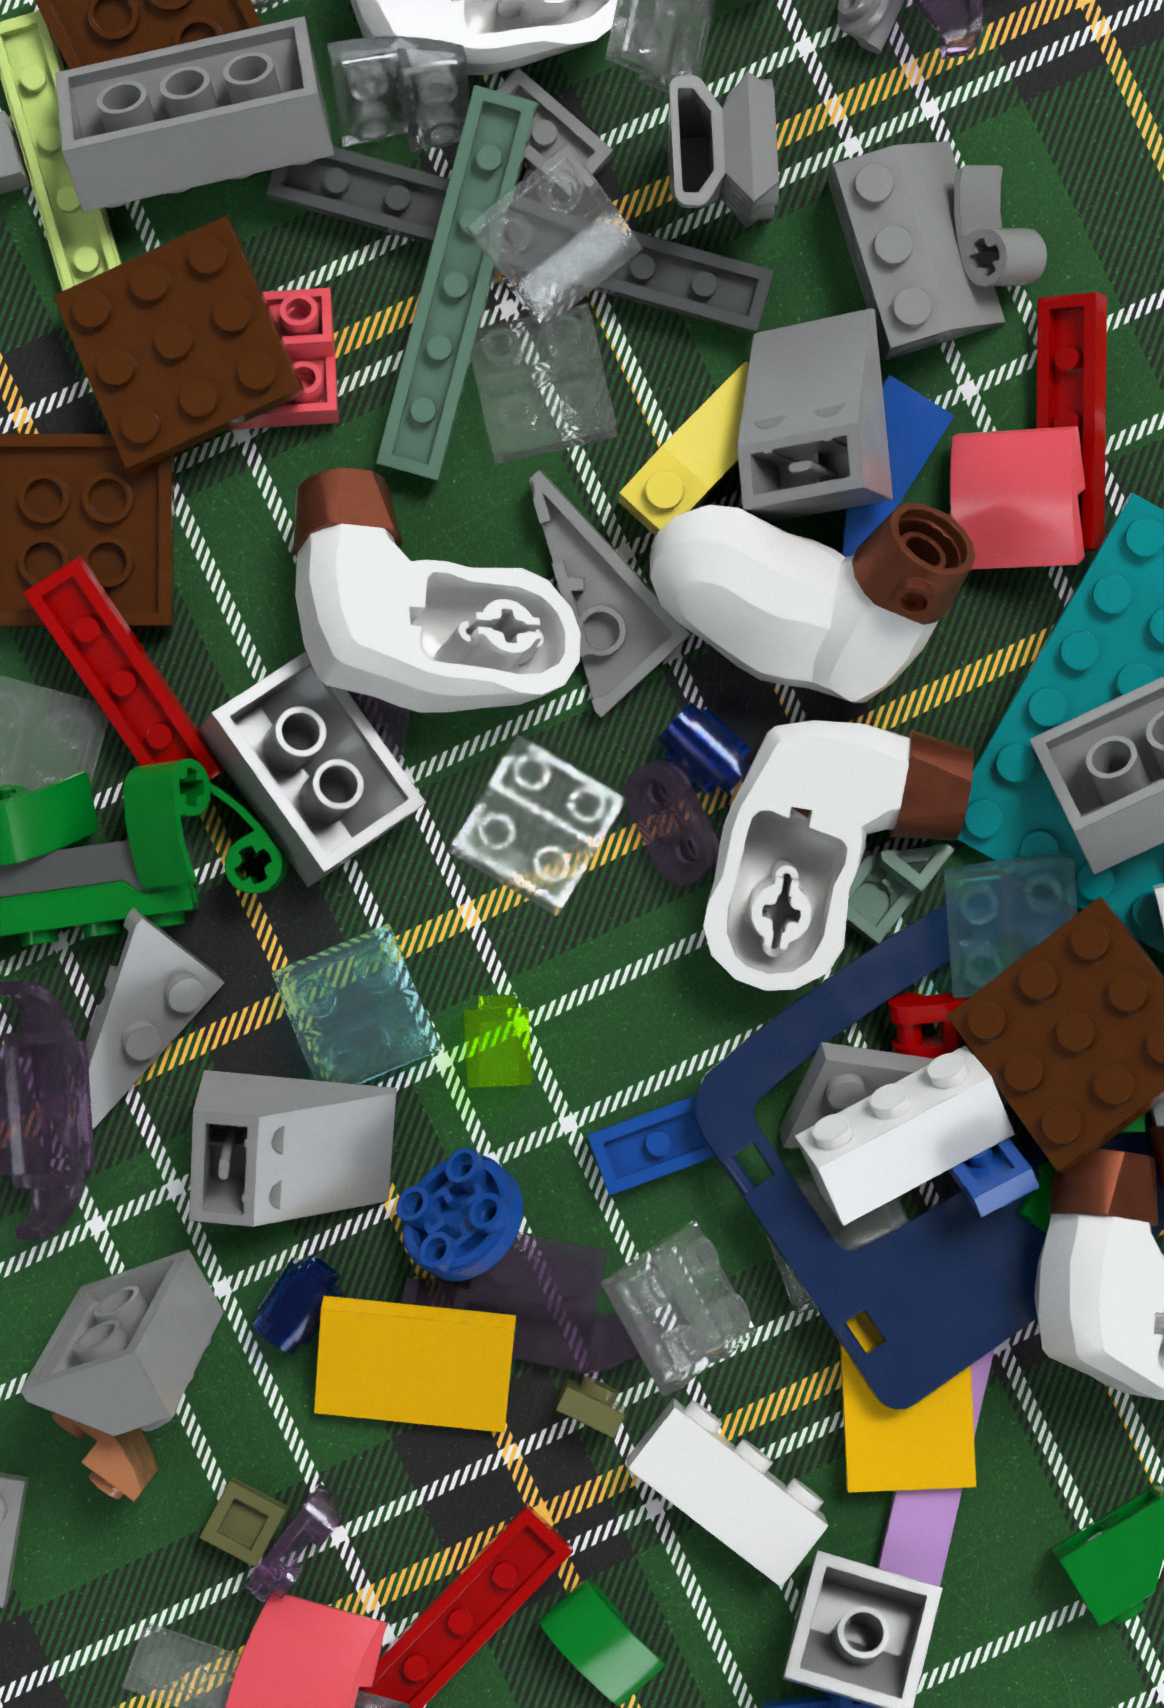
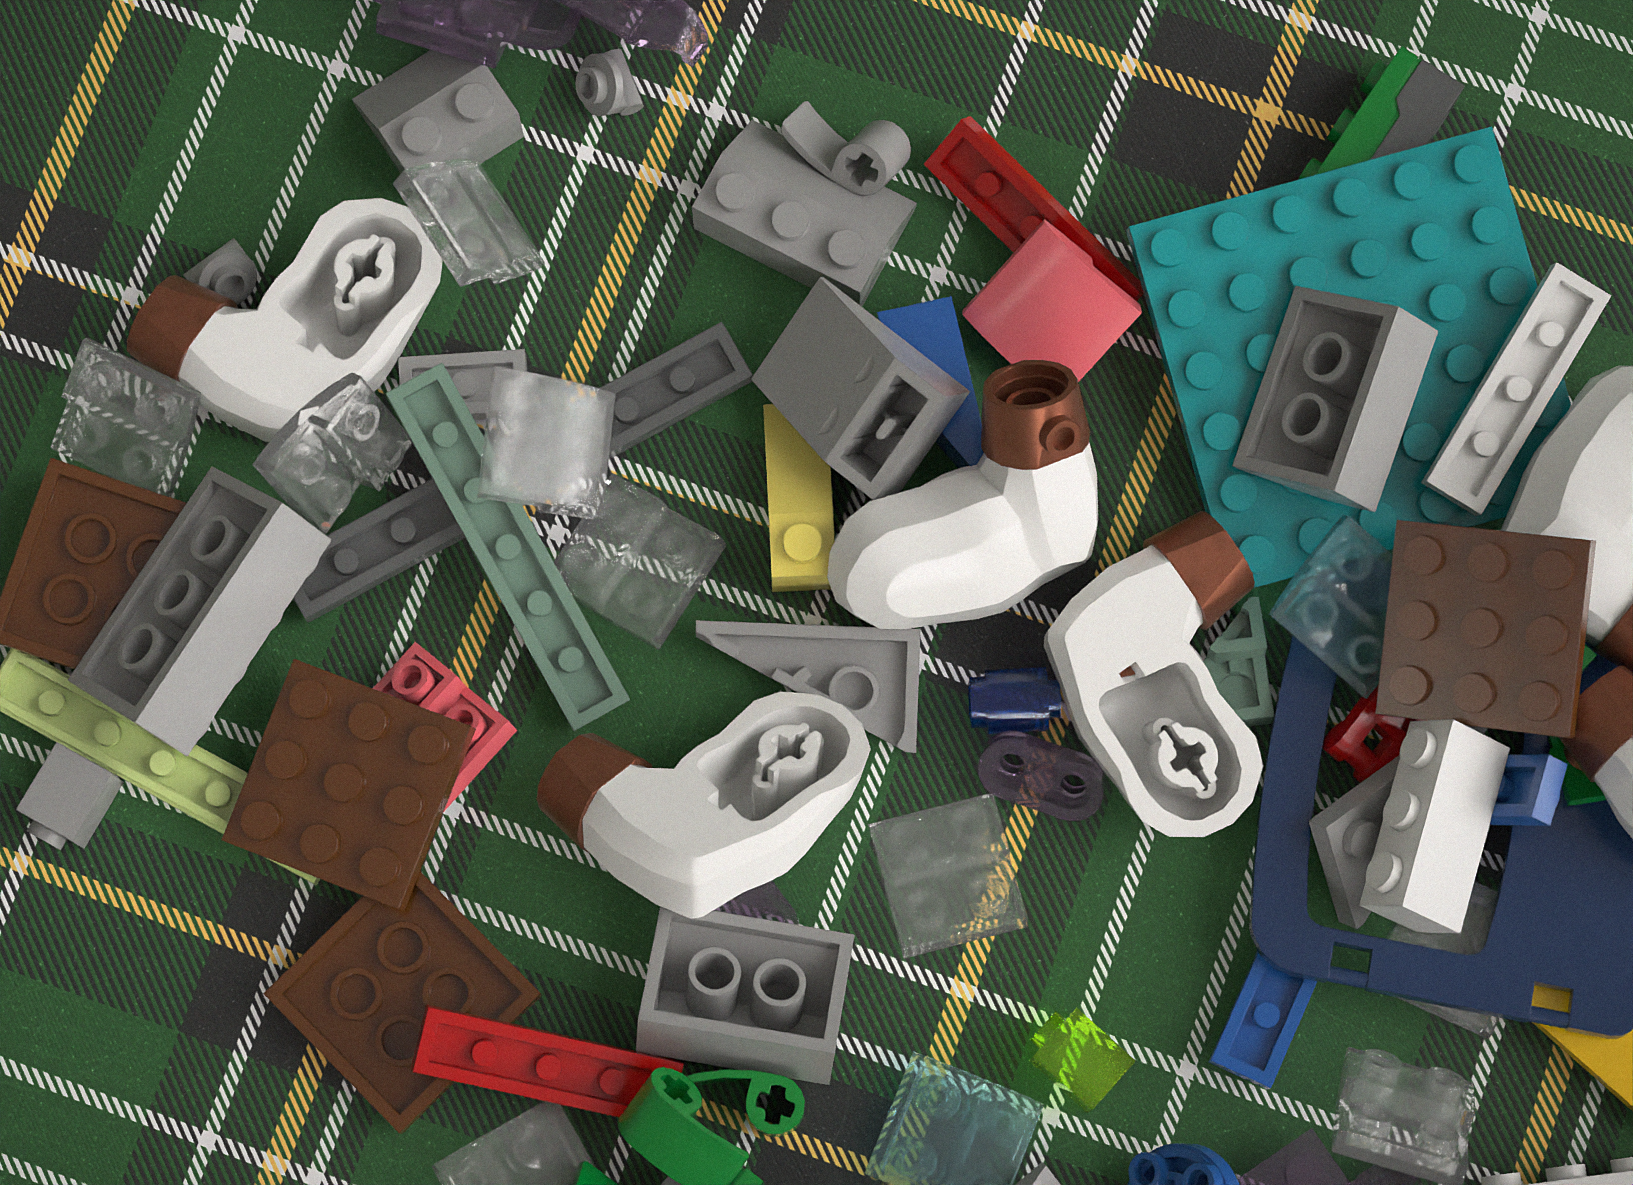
camera: 40 degrees left, 10 degrees down
(724, 149) = (606, 270): light grey piece -> none

